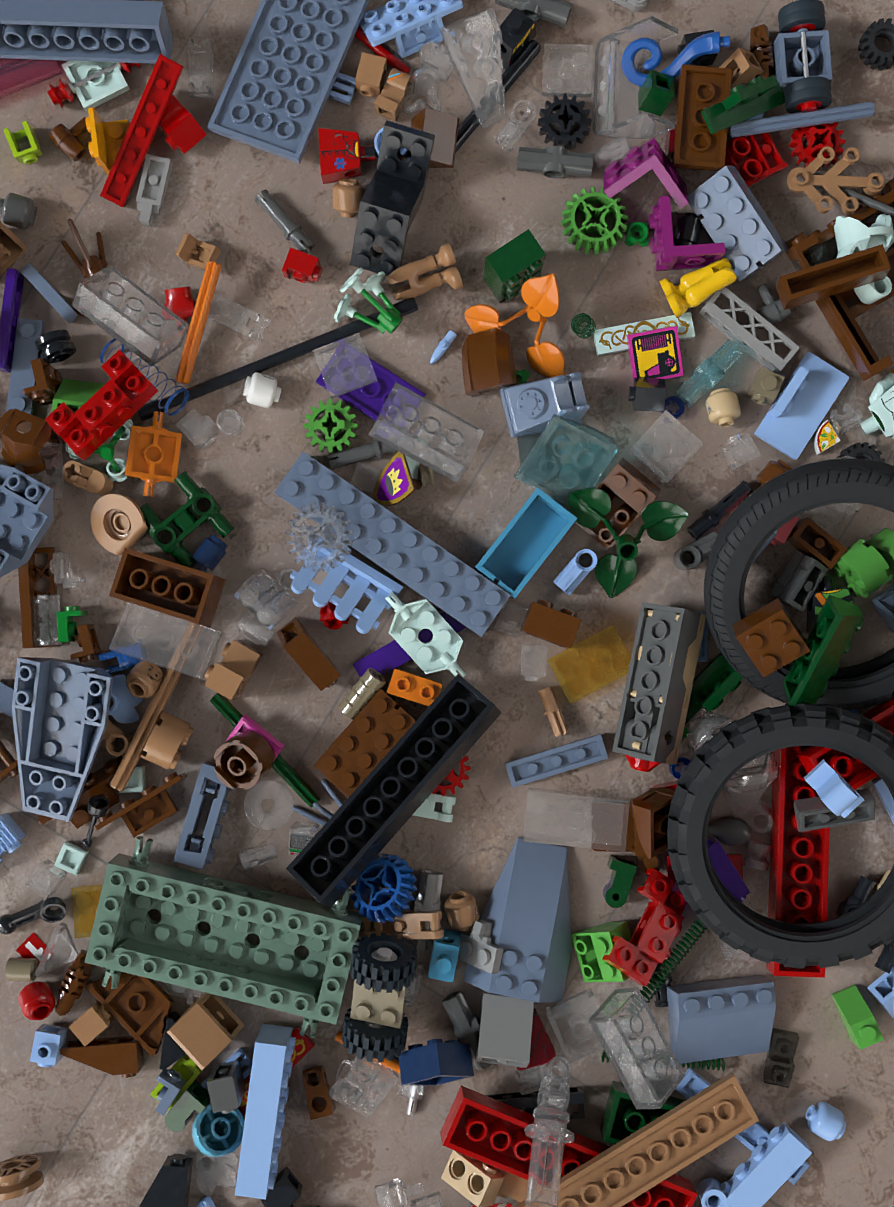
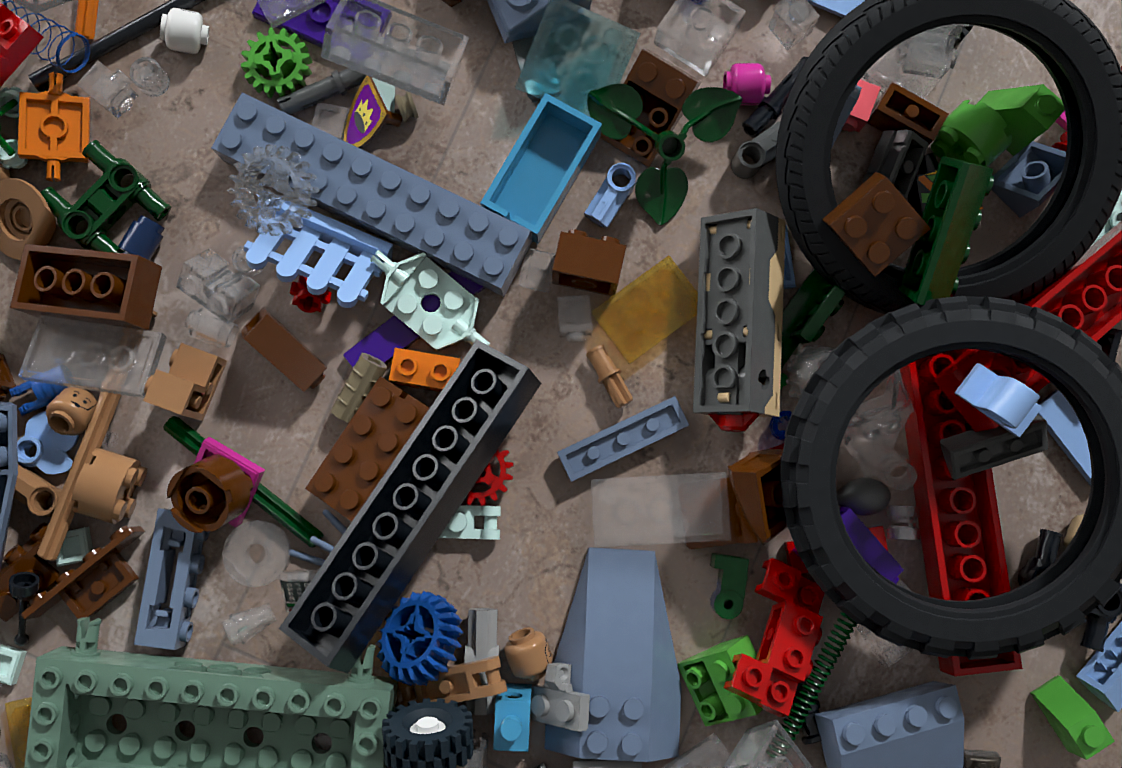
camera: 10 degrees left, 5 degrees down
(644, 863) = (759, 553): reddish brown plate -> none
(695, 497) = (748, 82): none -> dark pink head

